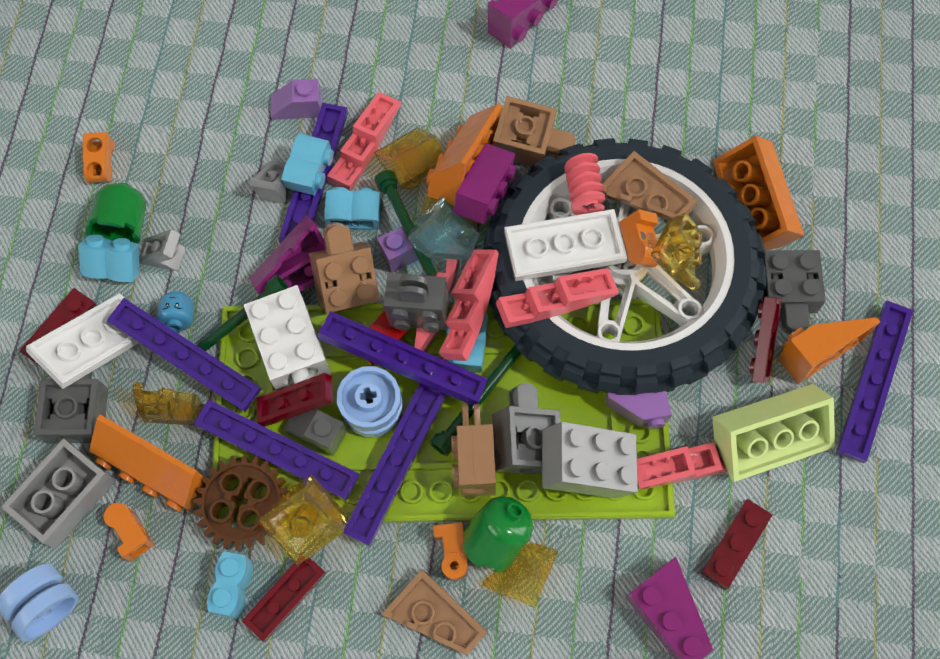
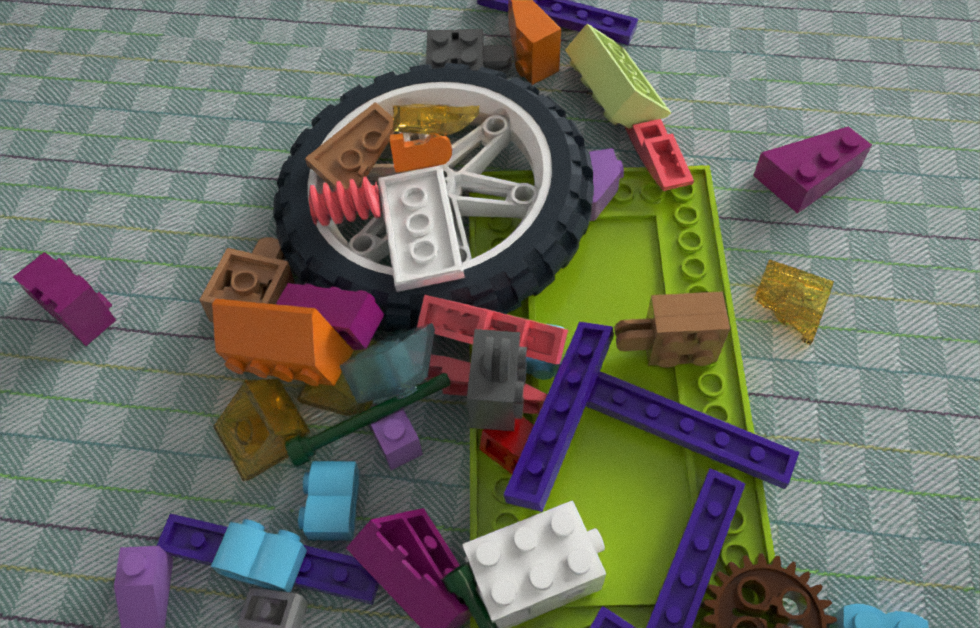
camera: 90 degrees left, 10 degrees down
(283, 598) = (876, 564): dark red plate -> none
(294, 399) = (623, 549): dark red plate -> none
(304, 520) = (784, 527): clear yellow slope -> none
(317, 430) = (653, 528): dark grey slope -> none
(345, 269) = (437, 493): medium nougat brick -> none
(364, 141) = (225, 490): coral slope -> none
(368, 385) = (616, 455): light blue wheel -> none
(435, 613) = (856, 387): medium nougat wing -> none
(442, 441) = (655, 374): dark green piece -> none
(455, 560) = (779, 367): orange leg -> none
(498, 533) = (764, 308): green cylinder -> none
(519, 431) = (644, 272): dark grey brick -> none
(557, 298) = (493, 230): coral slope -> none
(589, 460) = (676, 216): light grey brick -> none
(736, 544) = (729, 120): dark red plate -> none
(761, 185) = (328, 80): orange slope -> none
(765, 339) = (546, 83): dark red plate -> none

